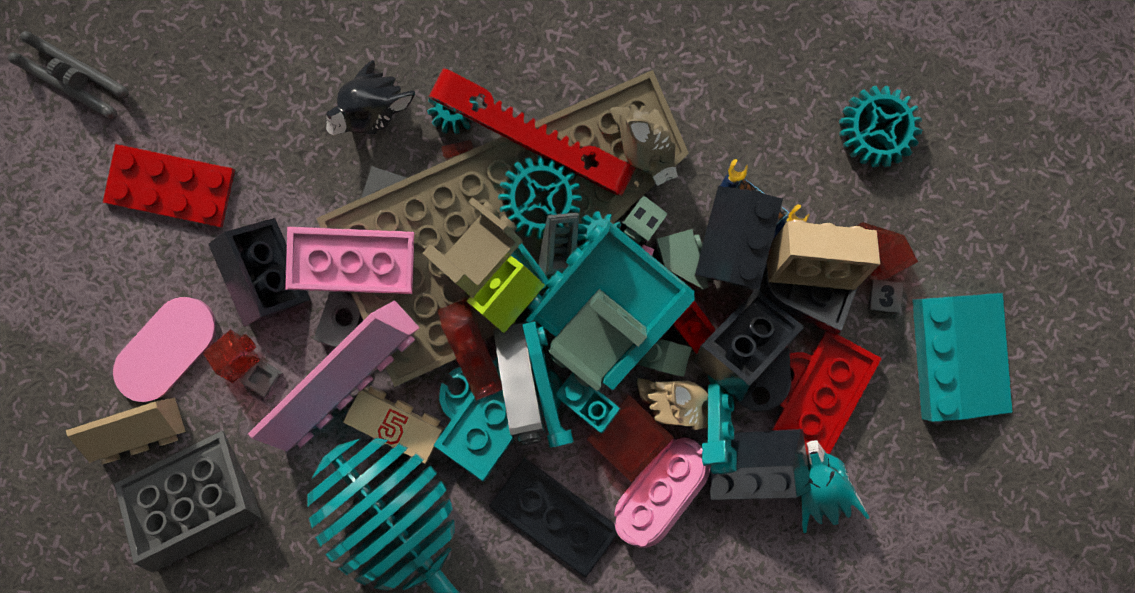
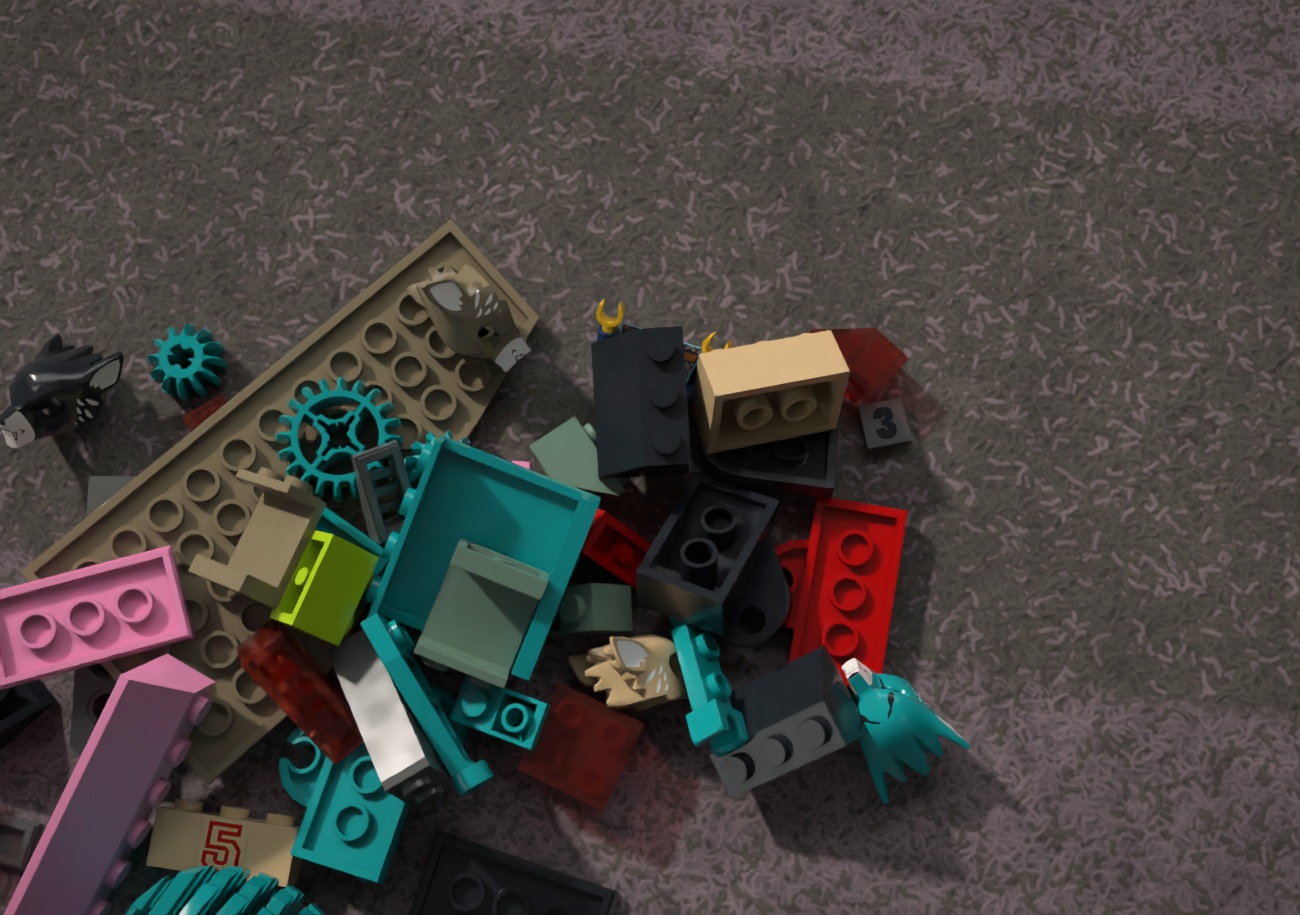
camera: 15 degrees left, 10 degrees down
(455, 93) = (177, 329): red gear -> none
(643, 221) = (502, 427): sand green slope -> none
(661, 493) = (654, 815): bright pink tile -> none
(886, 136) = (770, 170): teal gear -> none
(962, 357) = (1021, 471): teal slope -> none

